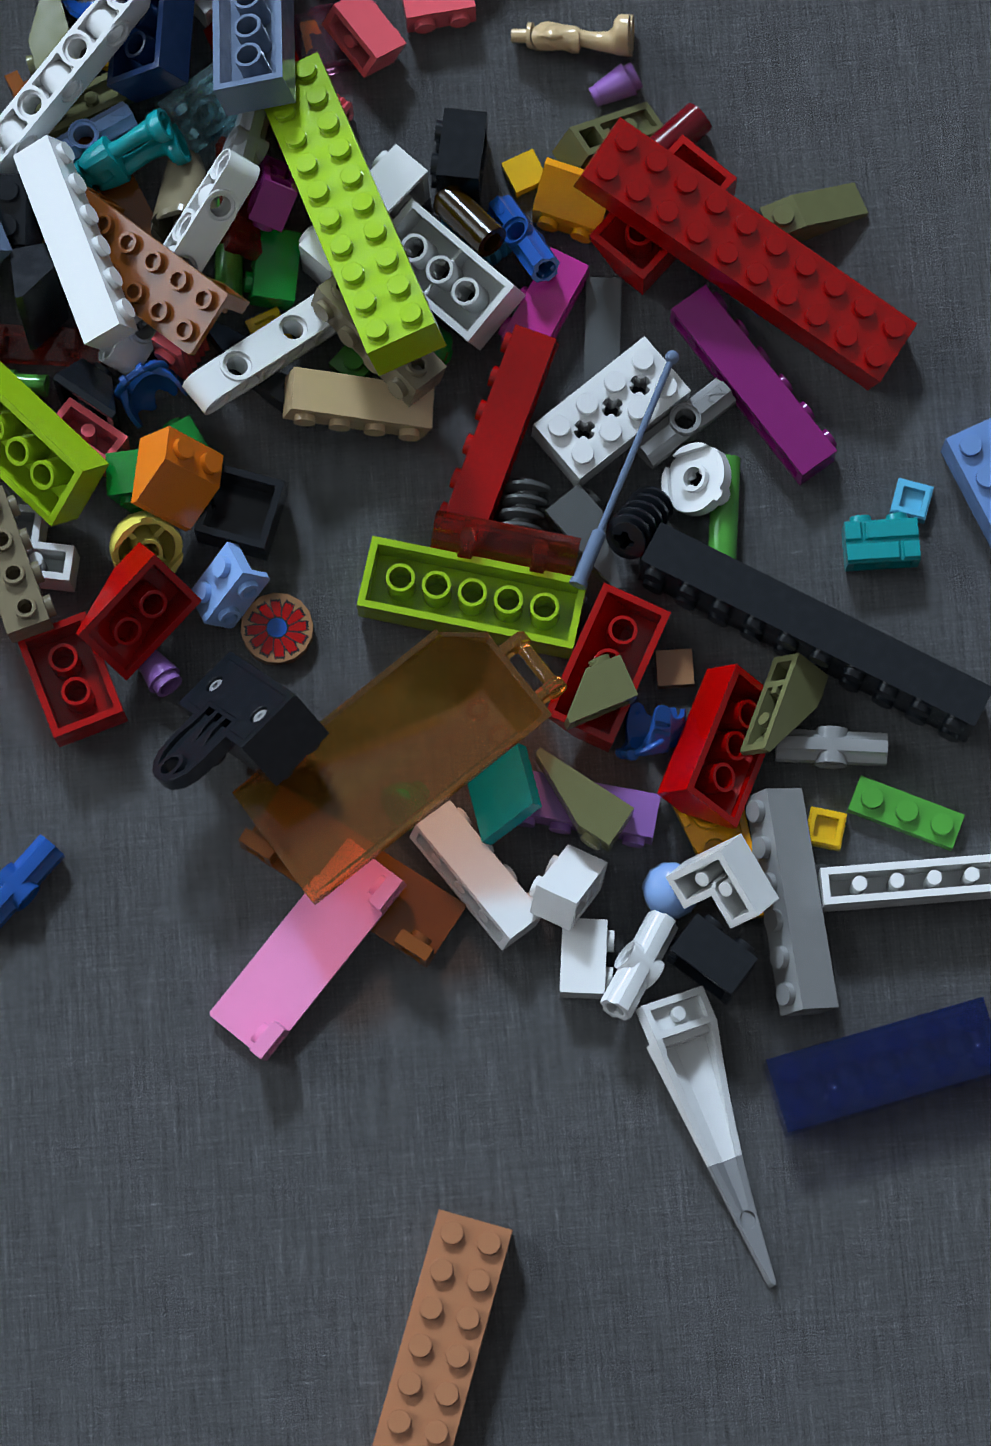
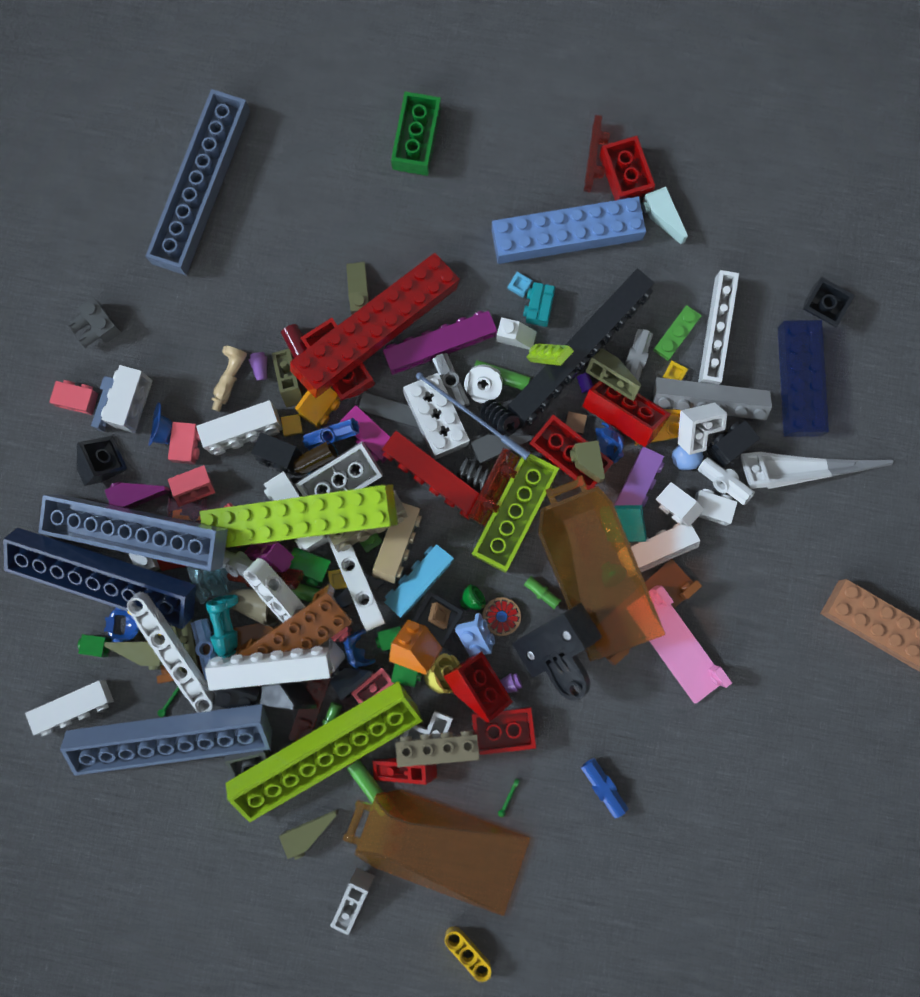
camera: 75 degrees left, 5 degrees up
(245, 509) = (439, 615): none -> medium nougat tile
(296, 568) = (473, 598): none -> green brick
(305, 468) = (419, 581): none -> medium azure slope
(341, 685) = (542, 592): none -> bright green pin
(489, 82) = (239, 428): none -> white brick
(591, 808) = (645, 482): olive slope -> none
(757, 663) = (585, 382): none -> dark purple hinge
(779, 569) = (549, 354): none -> lime plate
(810, 515) = (515, 334): none -> white slope

